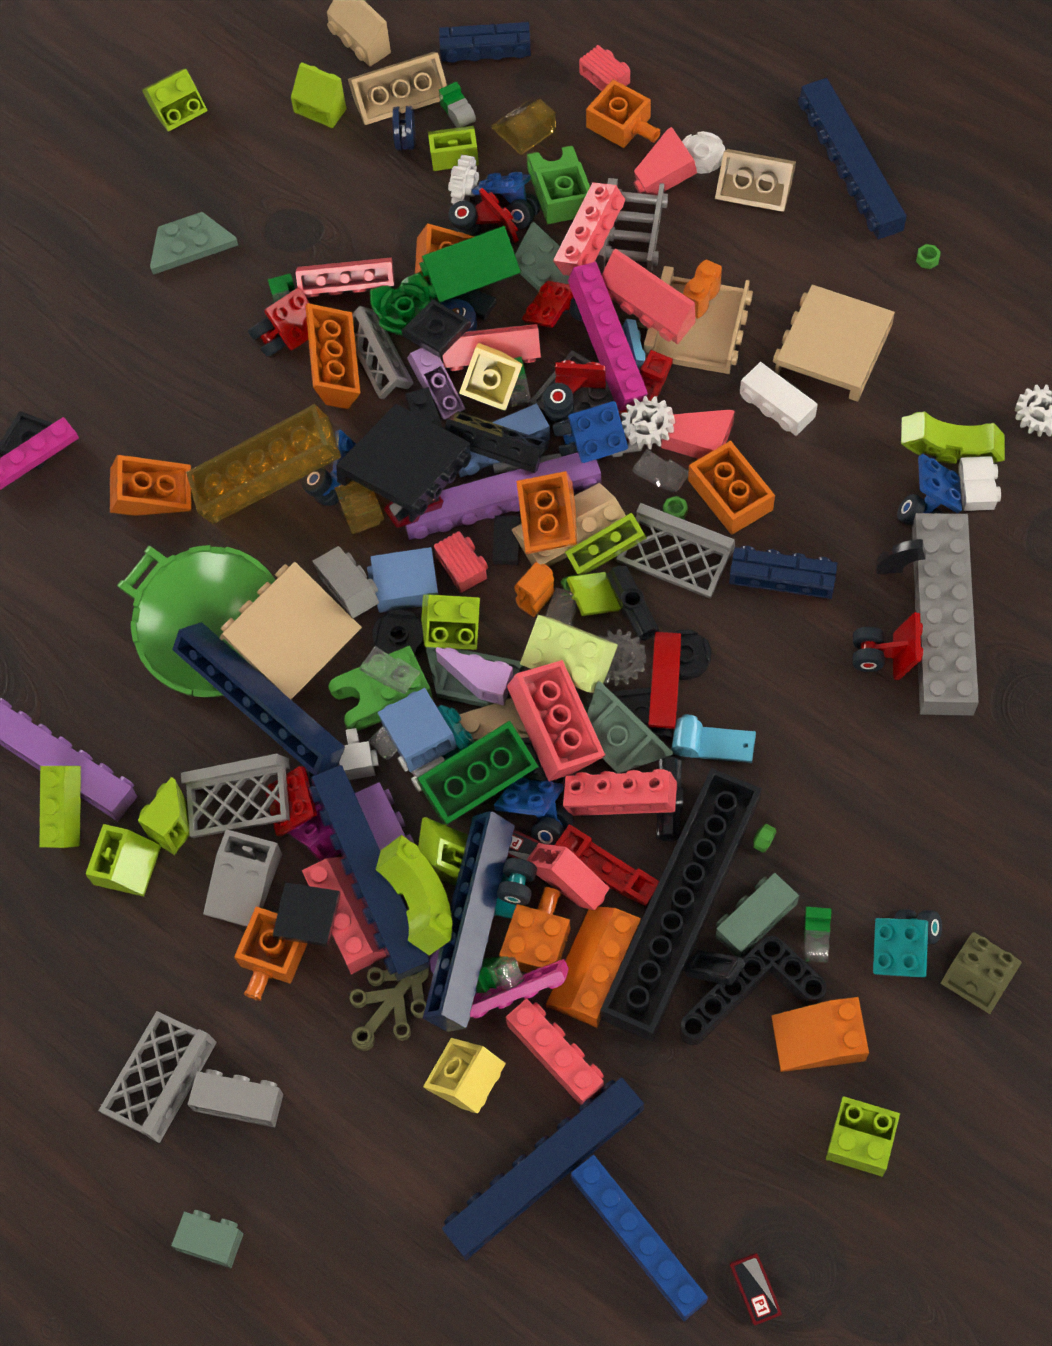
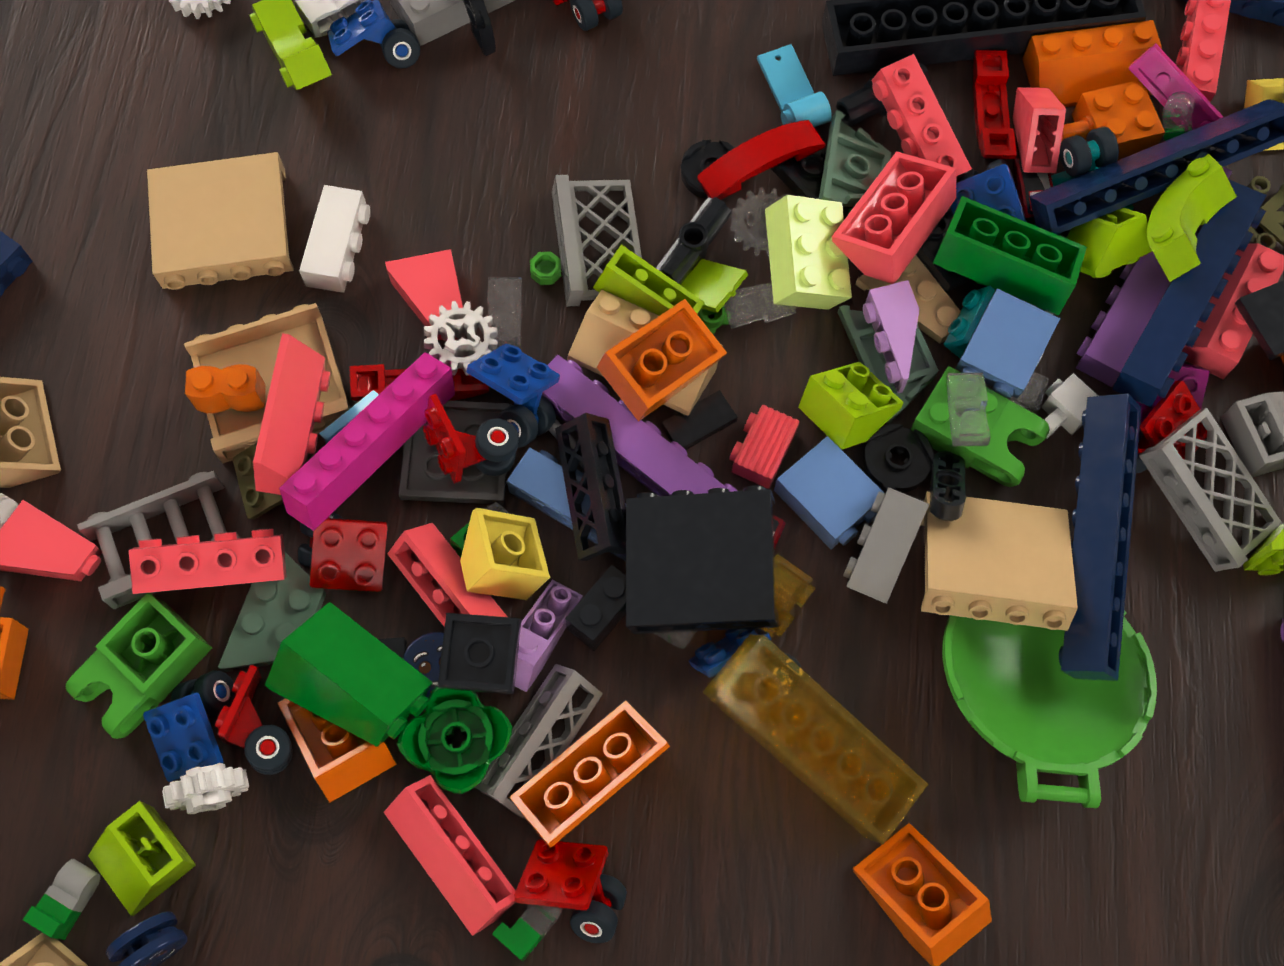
camera: 130 degrees left, 5 degrees up
(338, 628) = (947, 484): none -> black beam
(526, 125) = (48, 784): clear yellow slope -> none
(535, 589) = (750, 335): orange brick -> none
(731, 487) = (488, 217): orange brick -> none
(783, 572) = (557, 122): dark blue brick -> none
(928, 256) = (36, 189): bright green tile -> none

